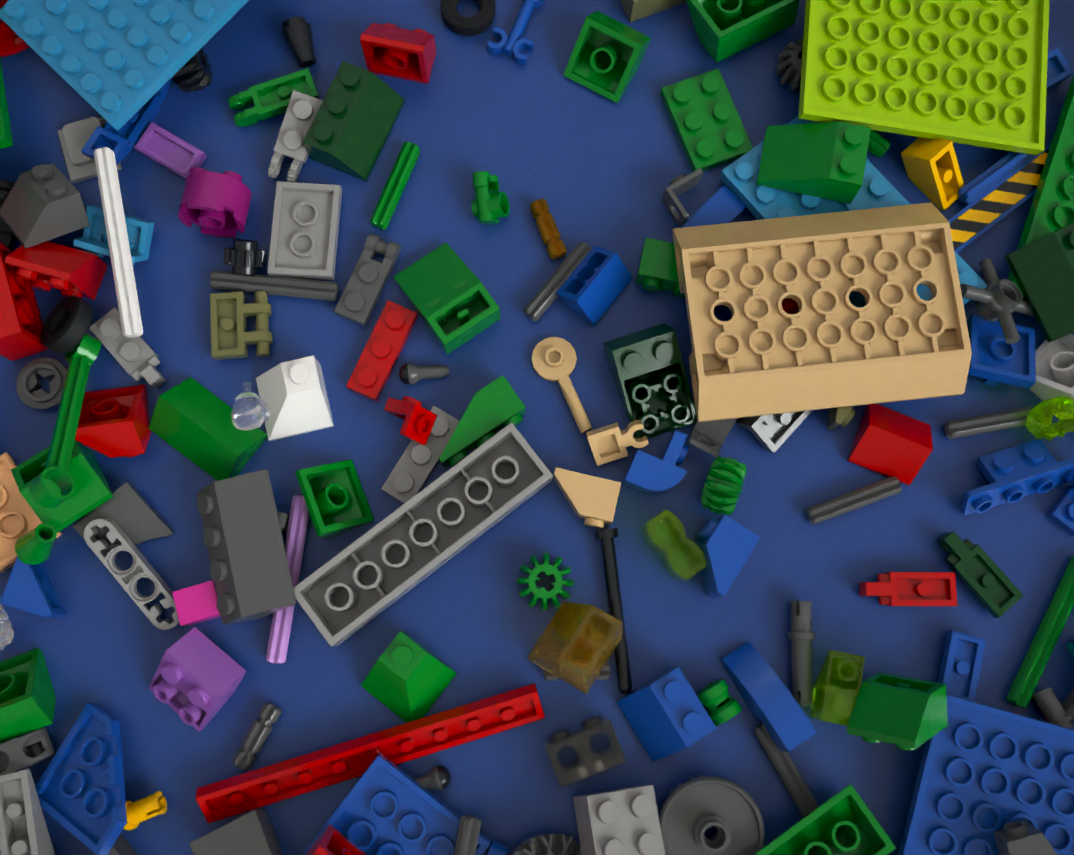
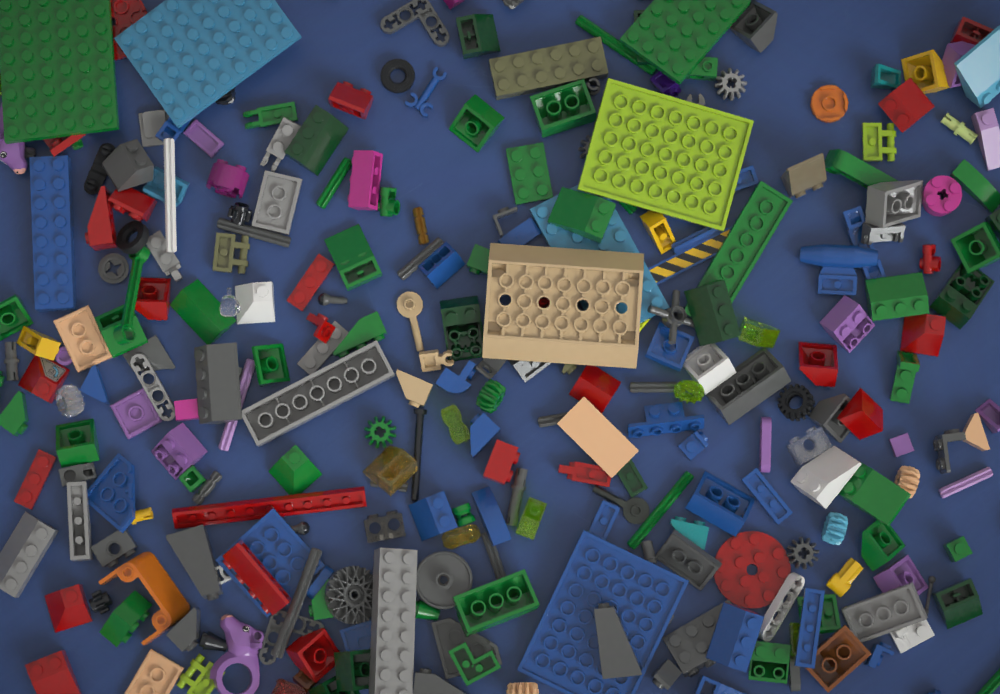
camera: 10 degrees right, 5 degrees up
(36, 544) = (103, 362): green cone -> none
(111, 627) = (135, 413): none -> medium lavender tile
(227, 724) = (192, 478): none -> green slope
(299, 39) = (291, 81): black cone -> none
(367, 280) = (308, 238): dark grey plate -> none
(444, 169) = (365, 180): none -> dark pink brick
(727, 738) = (461, 536): none -> clear yellow plate
(768, 597) = (500, 462): none -> red brick
(899, 710) = (556, 534): green slope -> none
(922, 524) = (598, 437): none -> light nougat tile
(1005, 637) = (634, 510): none -> pearl dark grey piece

